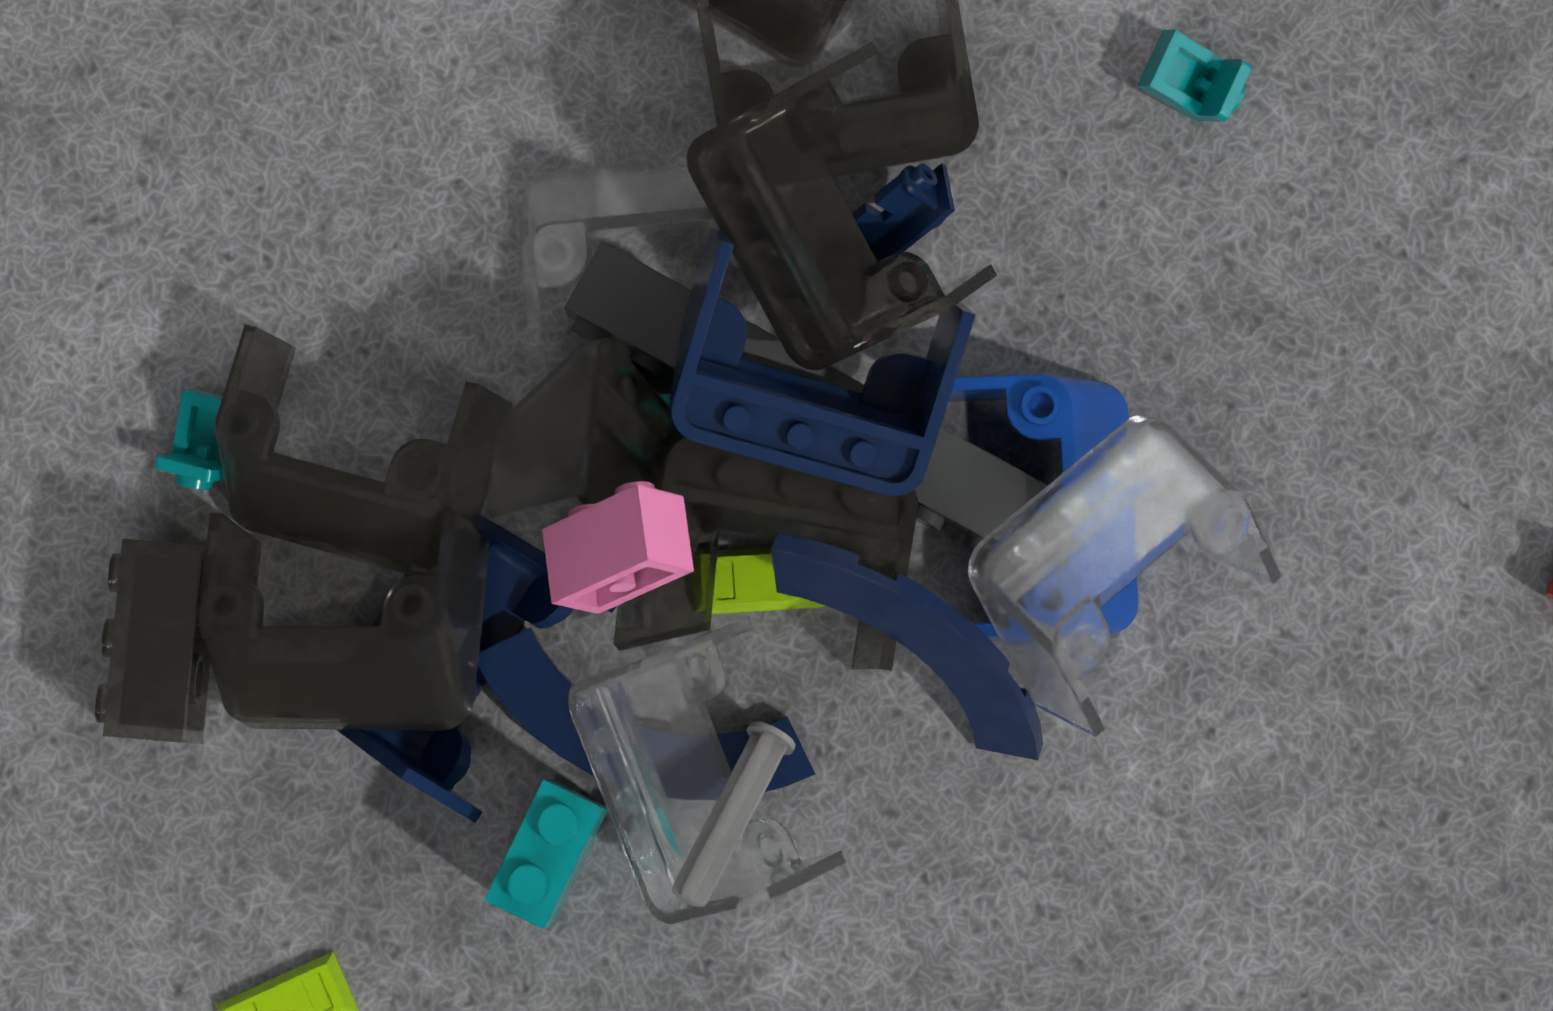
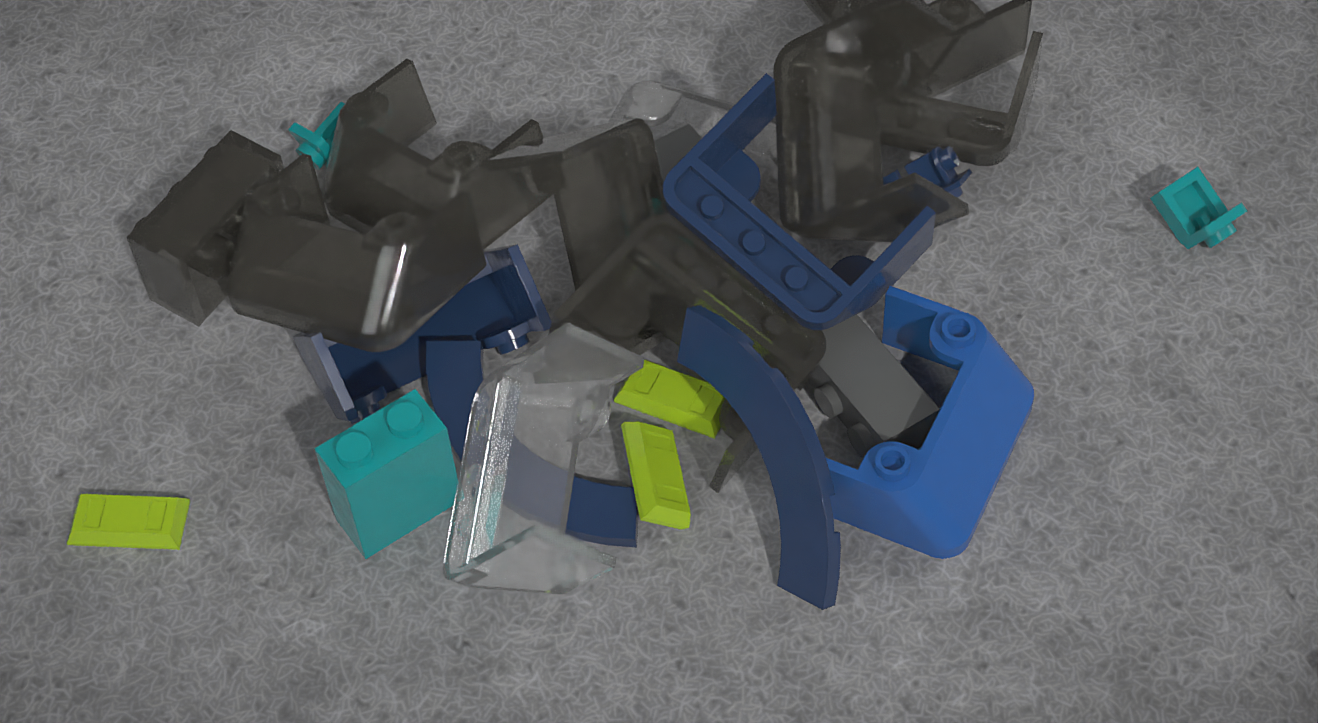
camera: 35 degrees right, 30 degrees down
(617, 548) = (570, 252): bright pink brick -> none
(732, 813) = (551, 509): light grey axle -> none
(795, 689) = (656, 475): none -> lime tile
(1092, 536) = (892, 416): clear windscreen -> none

